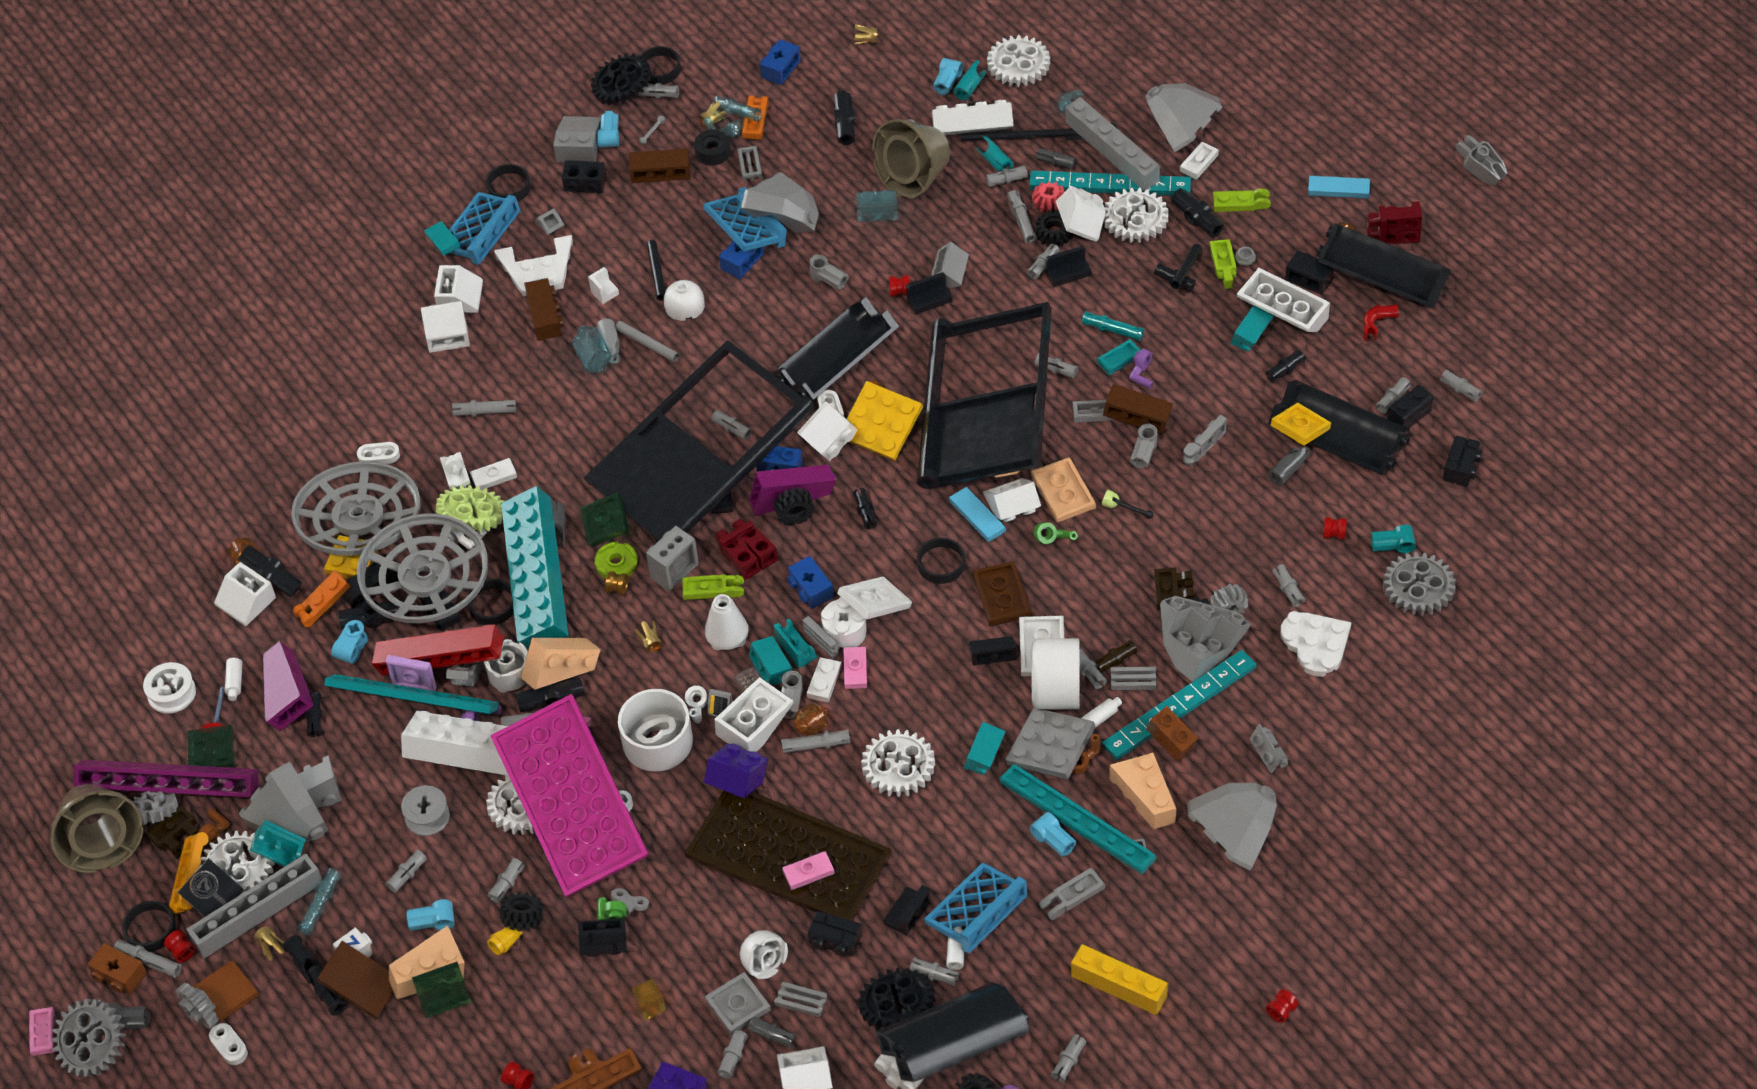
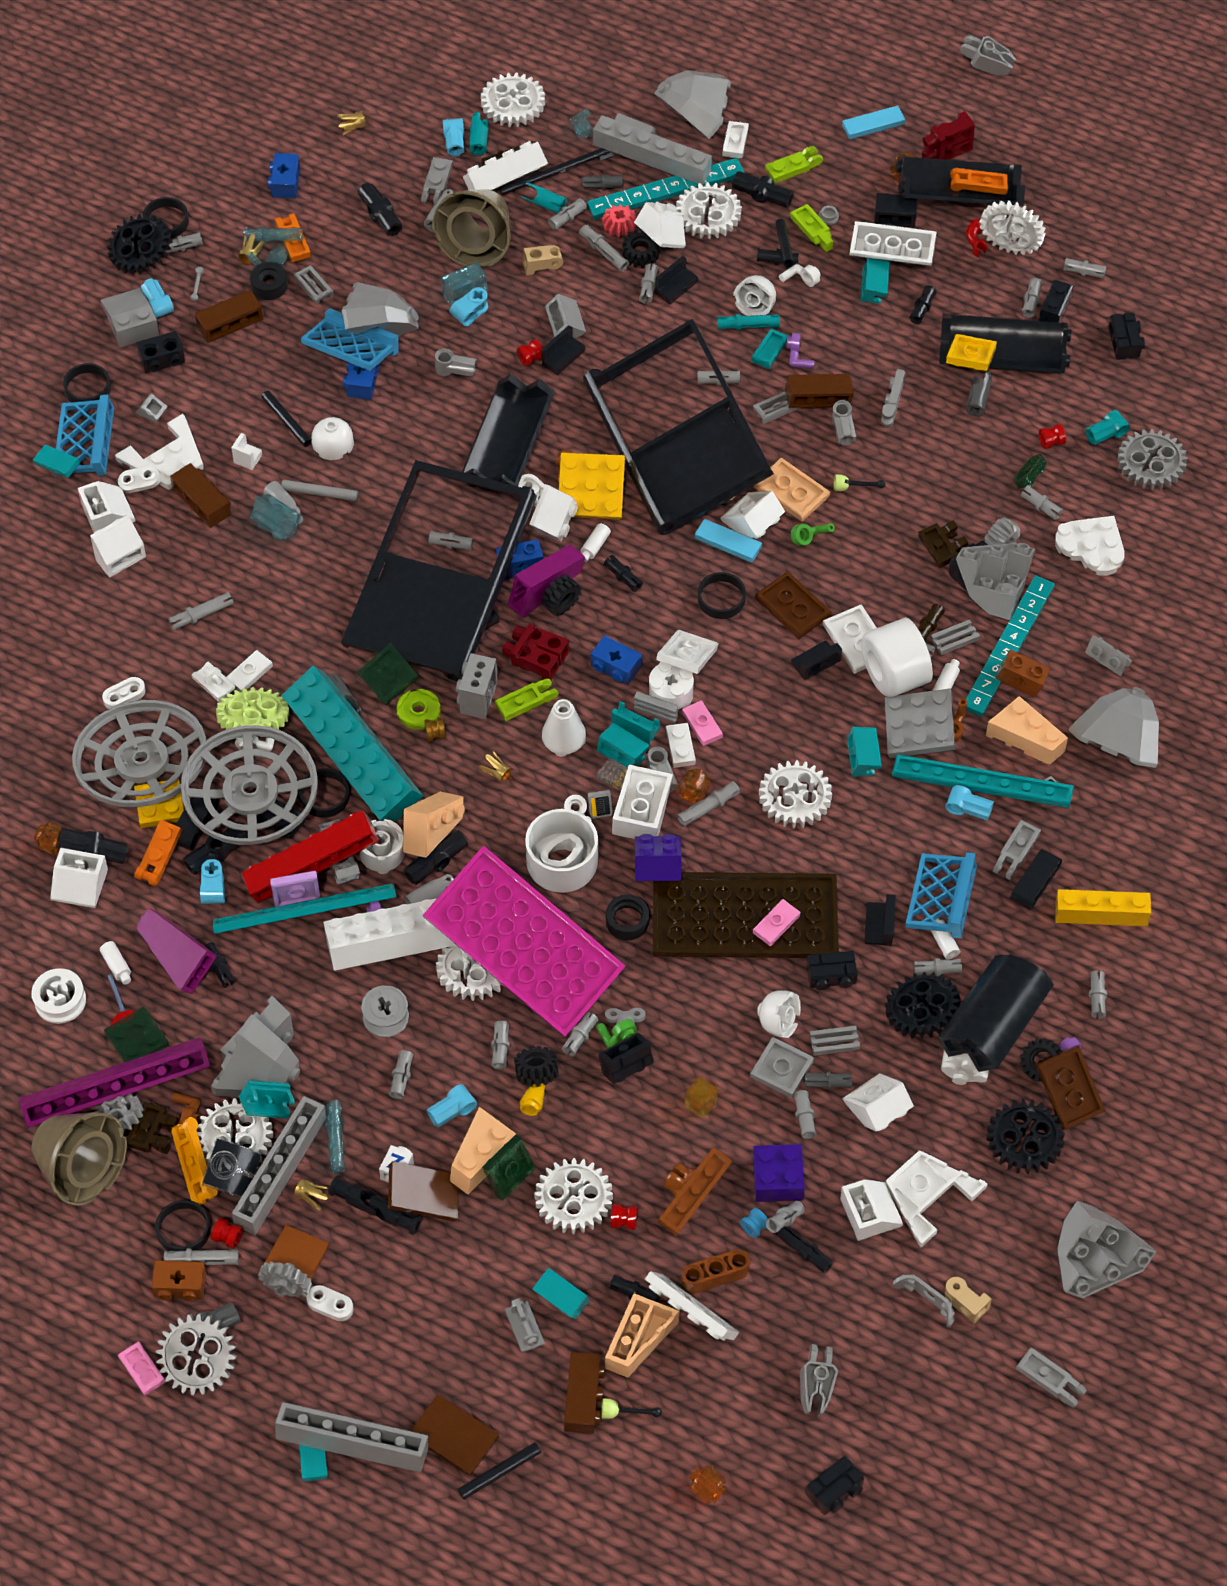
camera: 30 degrees left, 5 degrees up
(480, 1022) = (589, 1209): none -> white gear
(497, 277) = (138, 479): none -> white plate
(579, 899) = (580, 1034): none -> light grey pin
(682, 798) = (632, 902): none -> black tyre
(856, 472) = (595, 541): none -> white cylinder
(870, 229) = (470, 306): none -> medium azure piece
(912, 106) = (437, 178): none -> light grey hinge
(960, 207) = (541, 258): none -> tan leg
(1073, 928) = (1036, 879): none -> black beam
(1114, 118) = (635, 123): none -> light grey tile
(1130, 304) = (755, 295): none -> white cylinder
(1194, 302) = (809, 274): none -> white plate
(1300, 550) = (1030, 471): none -> clear green plate
(1401, 271) = (978, 181): none -> orange plate
(1403, 322) = (1021, 226): none -> white gear

